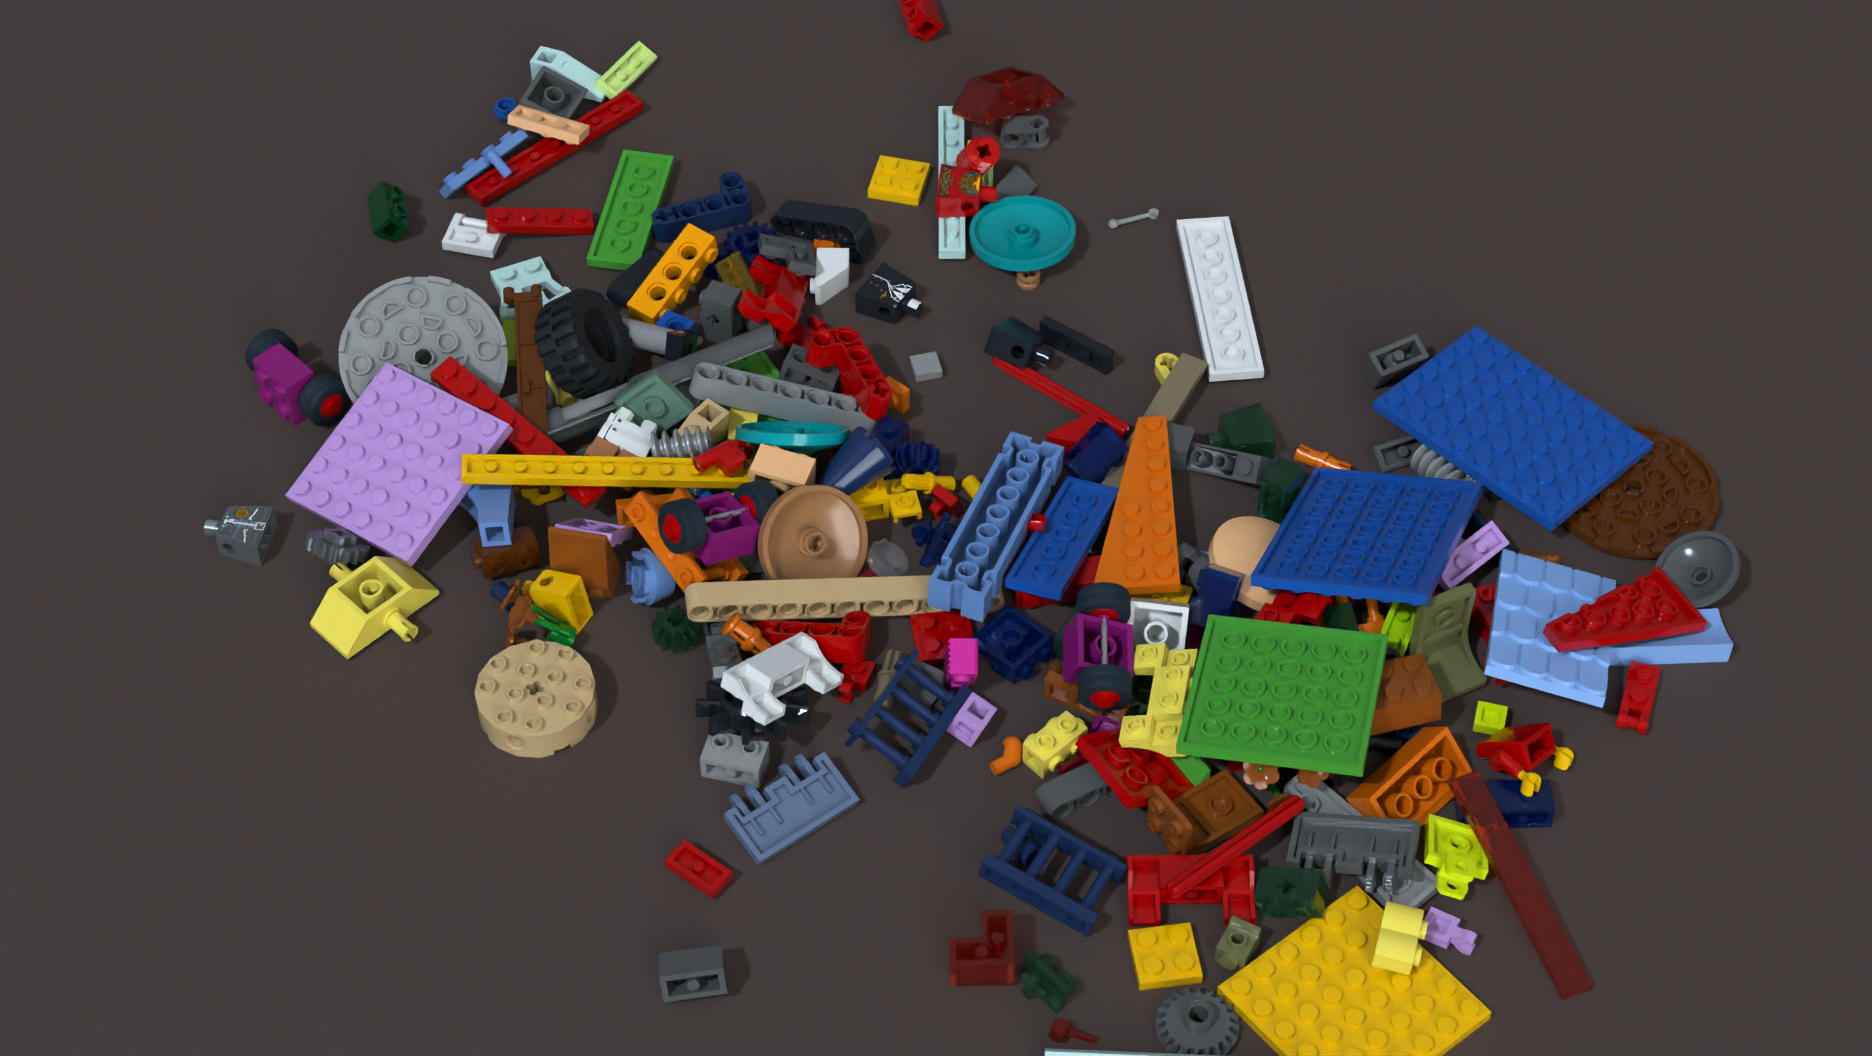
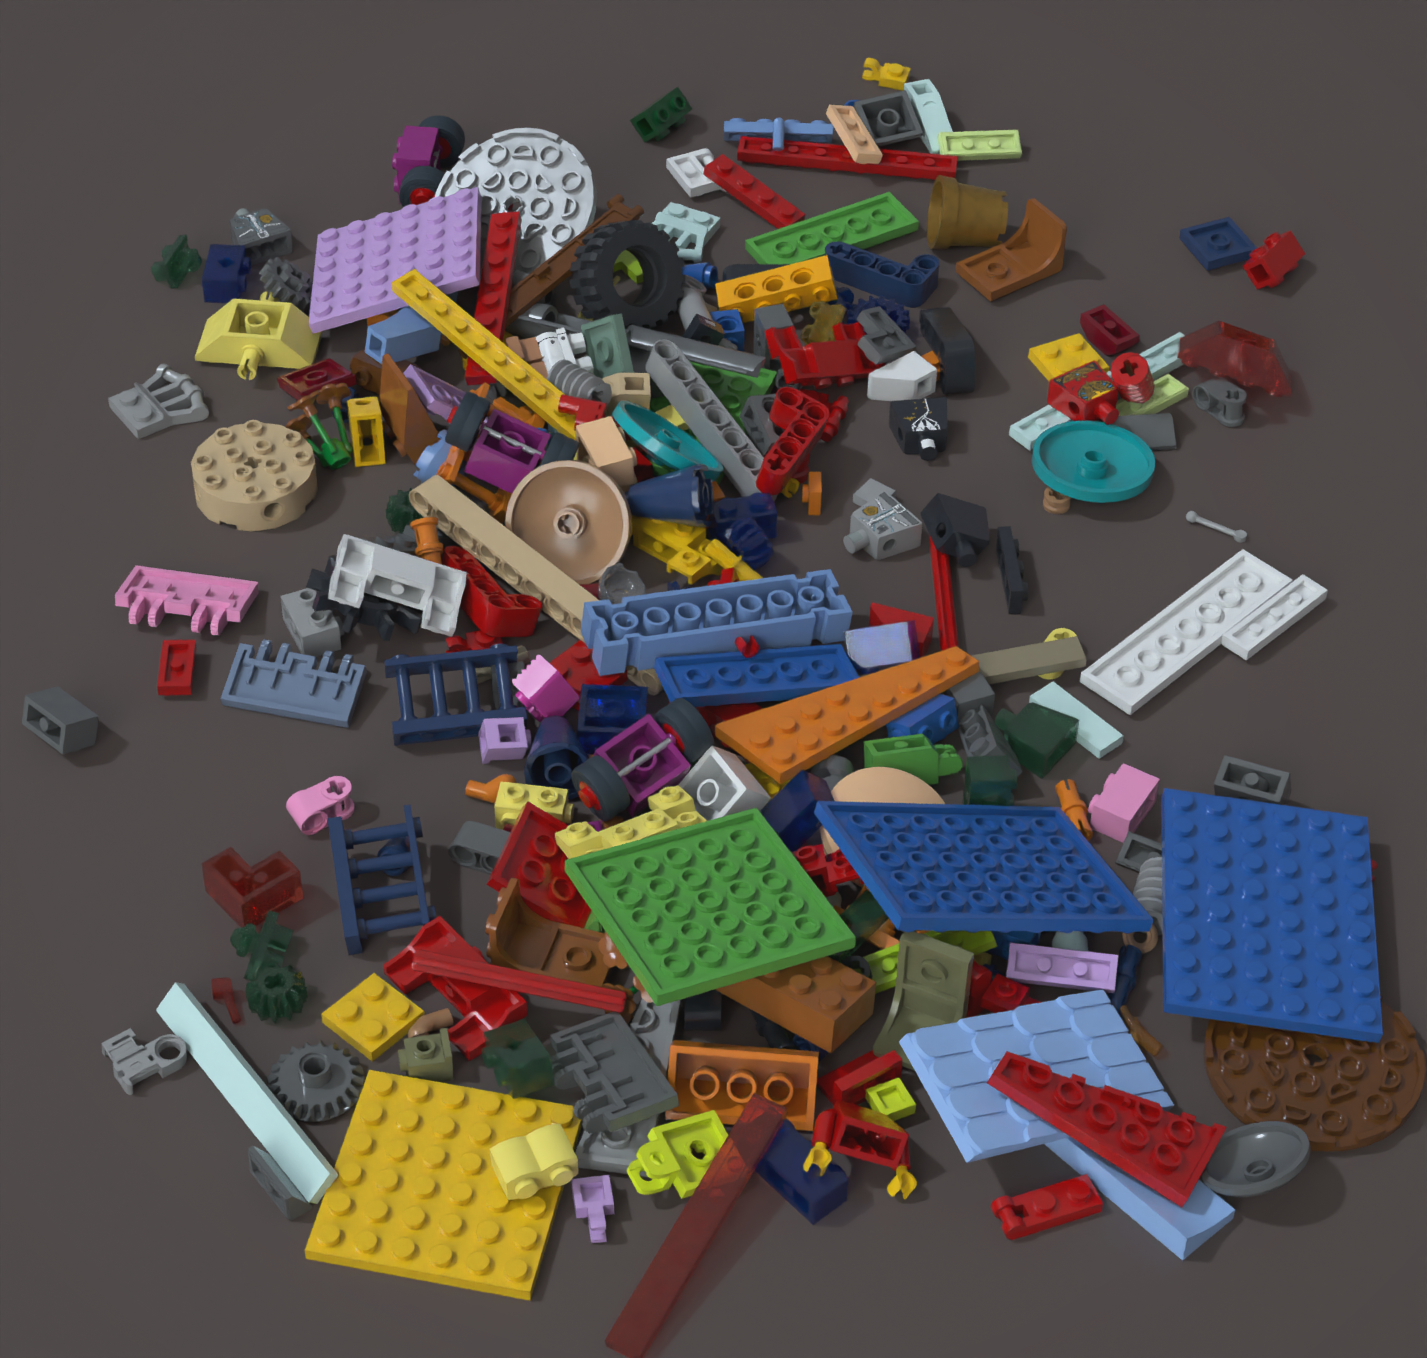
camera: 50 degrees right, 5 degrees down
(221, 596) = (176, 262): none -> clear green hips
(268, 579) = (225, 273): none -> clear blue brick
(374, 727) = (143, 408): none -> light grey plate
(464, 598) = (314, 377): none -> dark red tile
(484, 64) = (889, 76): none -> yellow plate
(628, 813) = (178, 592): none -> bright pink hinge
(705, 129) = (964, 215): none -> pearl gold piece
(772, 128) = (1021, 260): none -> dark orange bracket
(867, 27) = (1217, 243): none -> dark blue plate
(896, 140) = (1107, 330): none -> dark red slope
(935, 862) = (316, 804): none -> bright pink piece
(968, 381) = (883, 528): none -> light grey torso
(1023, 696) = (554, 755): none -> dark blue cone
(1098, 998) = (276, 992): none -> clear green gear
(1184, 484) = (932, 718): none -> blue brick
(1203, 931) = (430, 1023): none -> medium nougat arm
(1209, 512) = (913, 755): none -> bright green hinge
(1215, 405) = (1093, 731): none -> light aqua tile
(1249, 248) = (1274, 617): none -> white plate
(1343, 432) = (1123, 802): none -> bright pink brick
(1459, 718) = (852, 1079): none -> red panel

